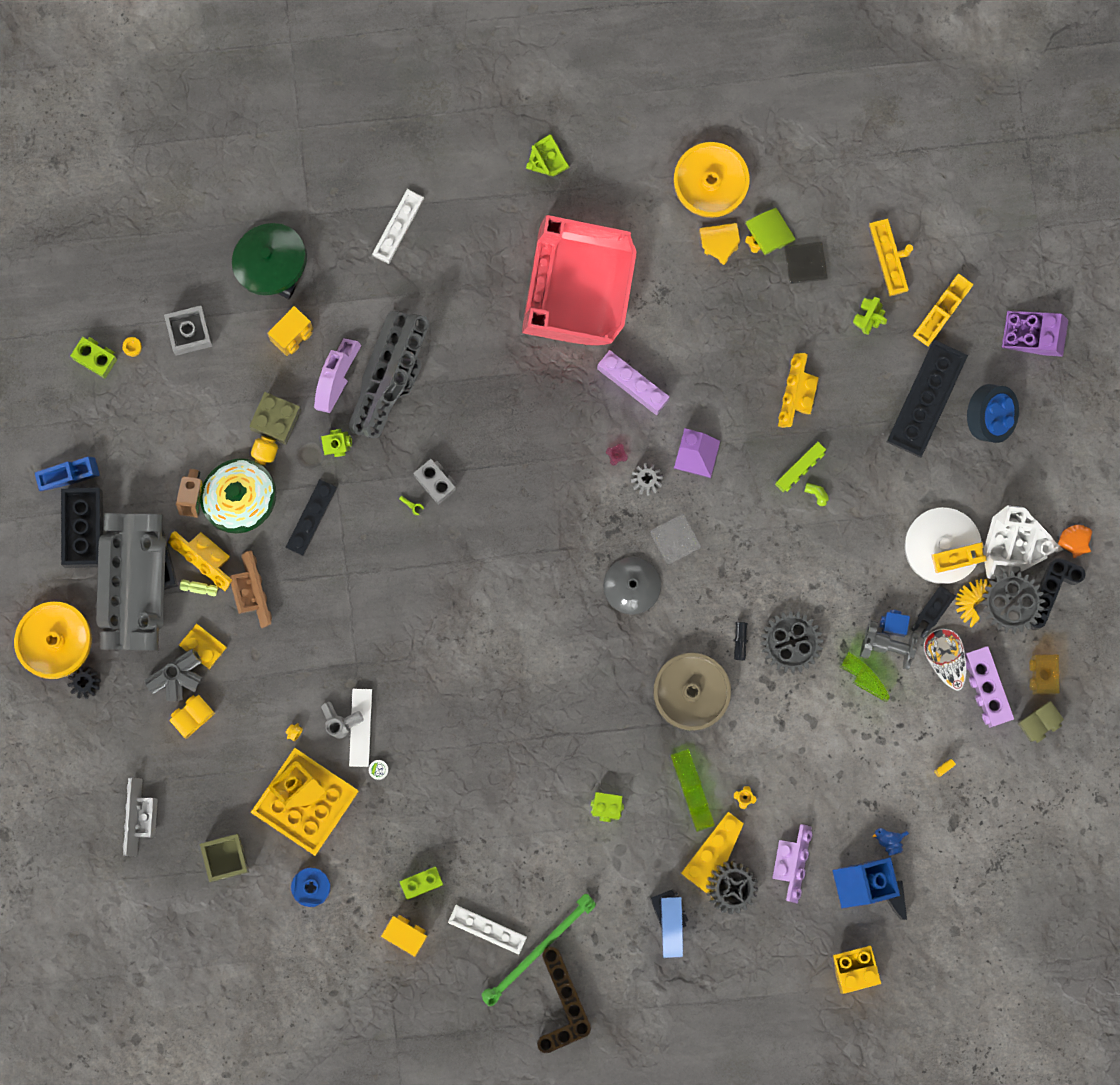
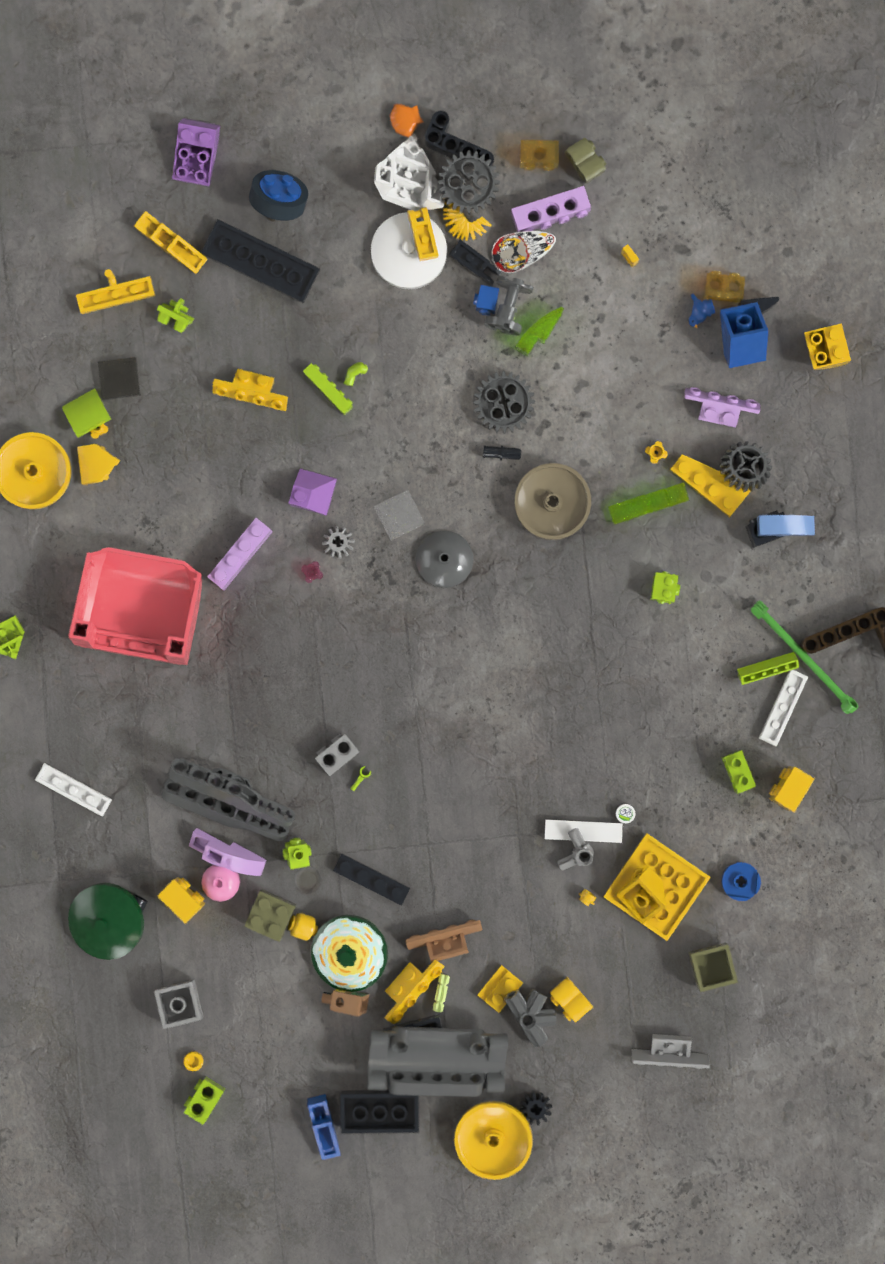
camera: 80 degrees left, 5 degrees up
(306, 369) = (220, 883): none -> bright pink cylinder
(527, 913) = (768, 668): none -> lime piece
(910, 864) = (724, 293): none -> clear yellow brick

